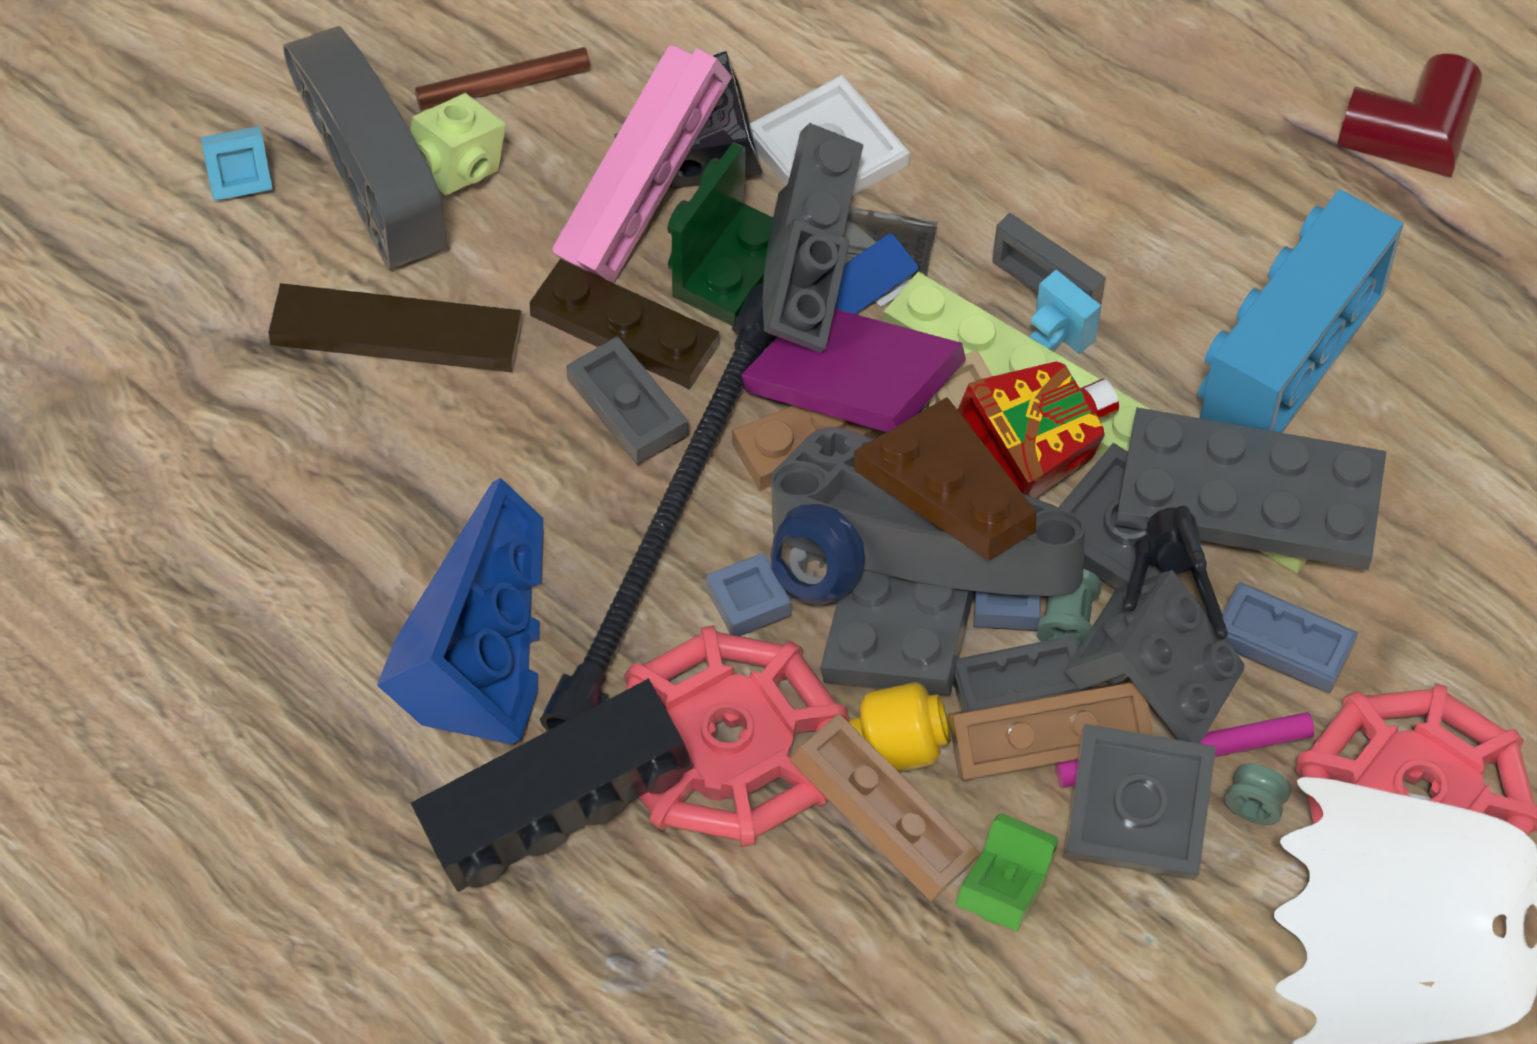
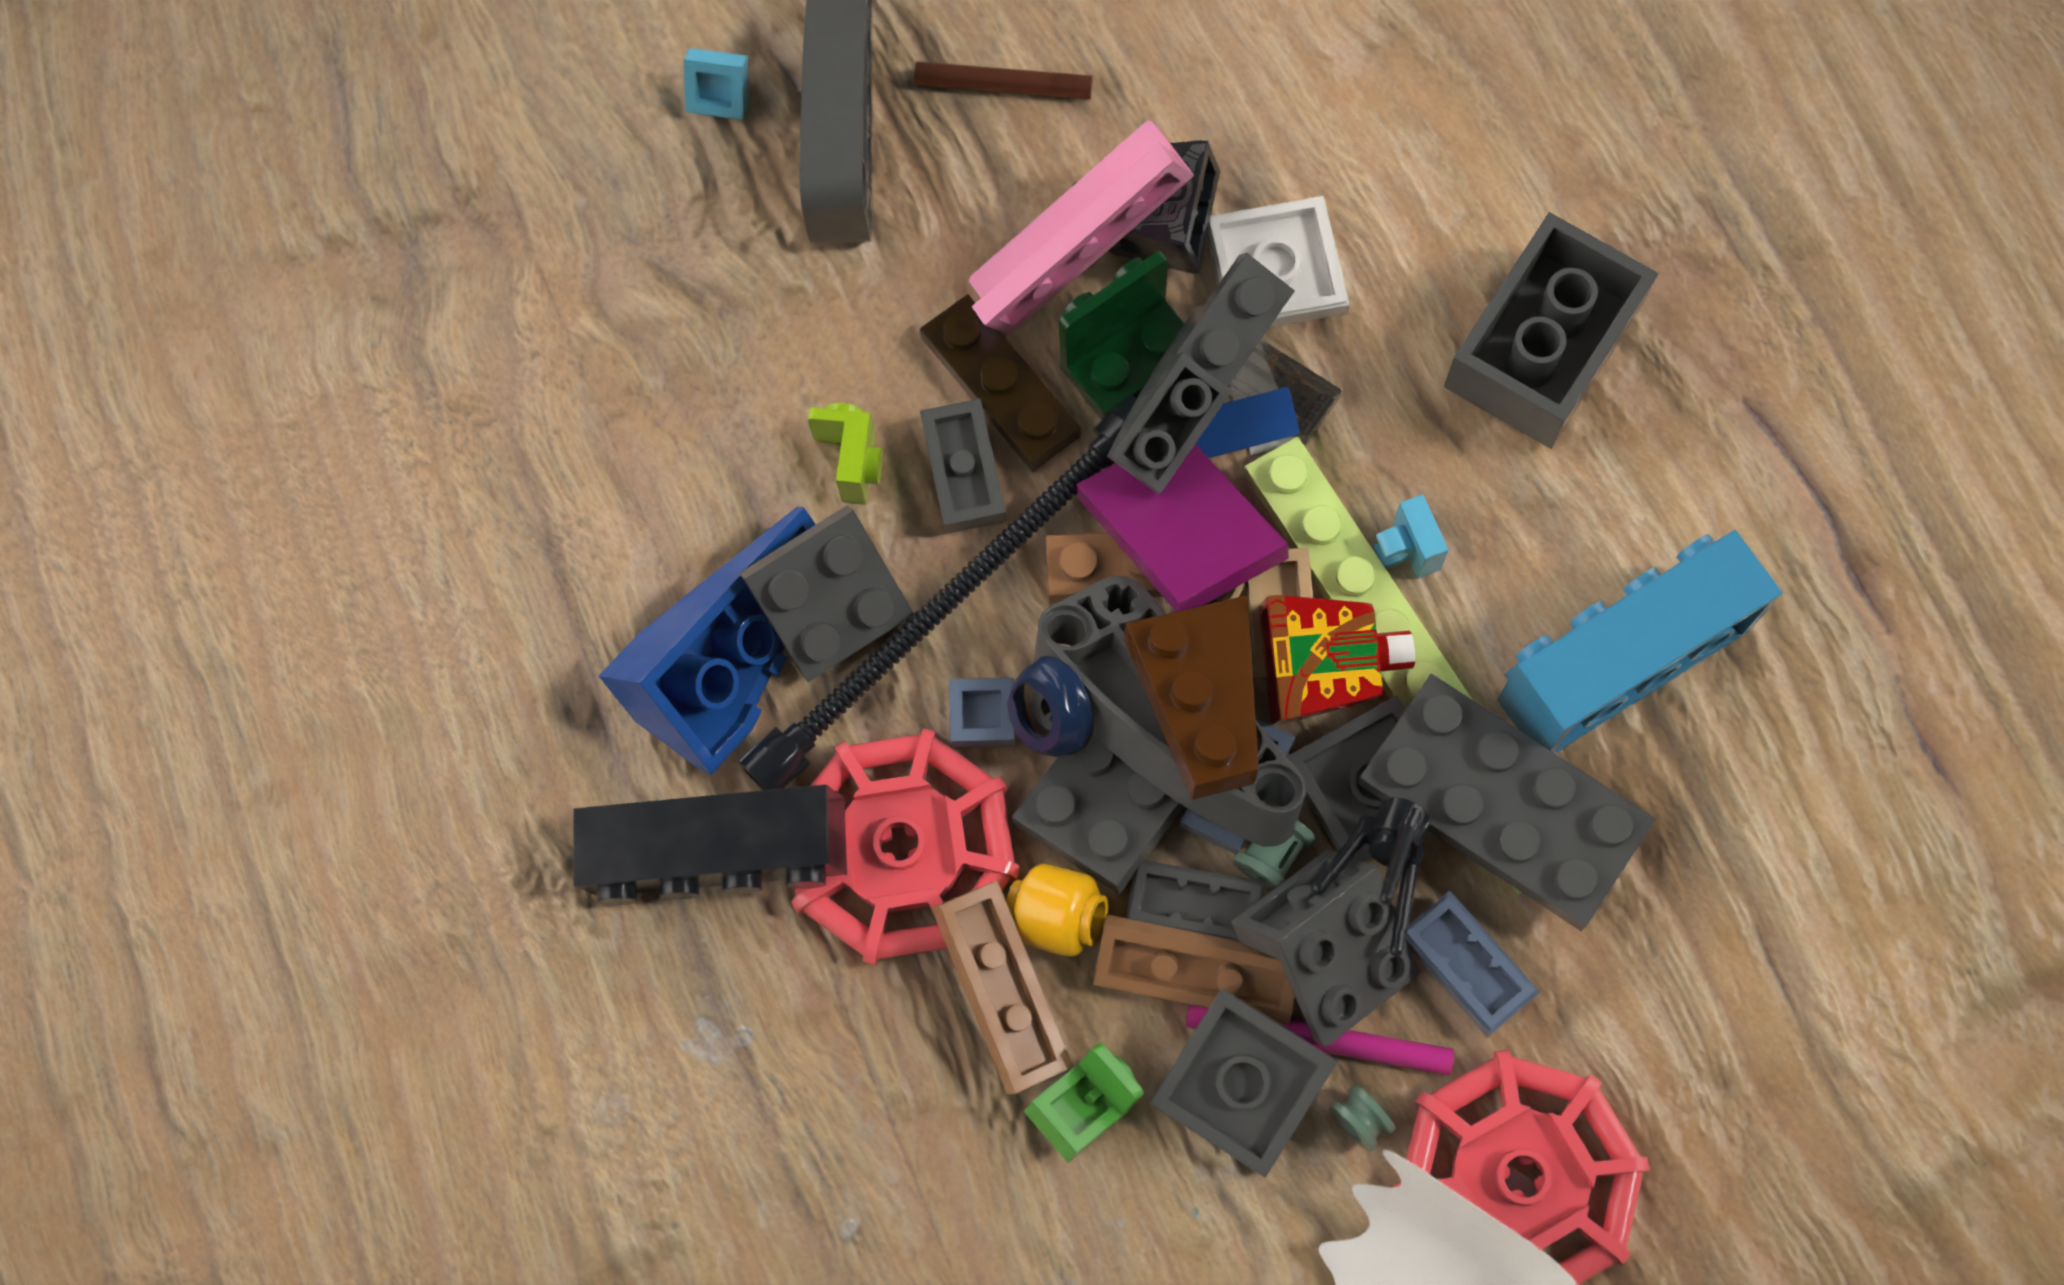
camera: 30 degrees right, 15 degrees up
(395, 327) = (790, 306): dark brown tile -> none
(459, 142) = (918, 139): yellowish green brick -> none
(512, 405) = (858, 458): none -> lime bracket
(558, 542) = (827, 593): none -> dark grey plate
(1034, 257) = (1419, 475): dark grey tile -> none
(1097, 108) = (1549, 329): none -> dark grey brick
(1421, 131) = (1873, 472): dark red brick -> none

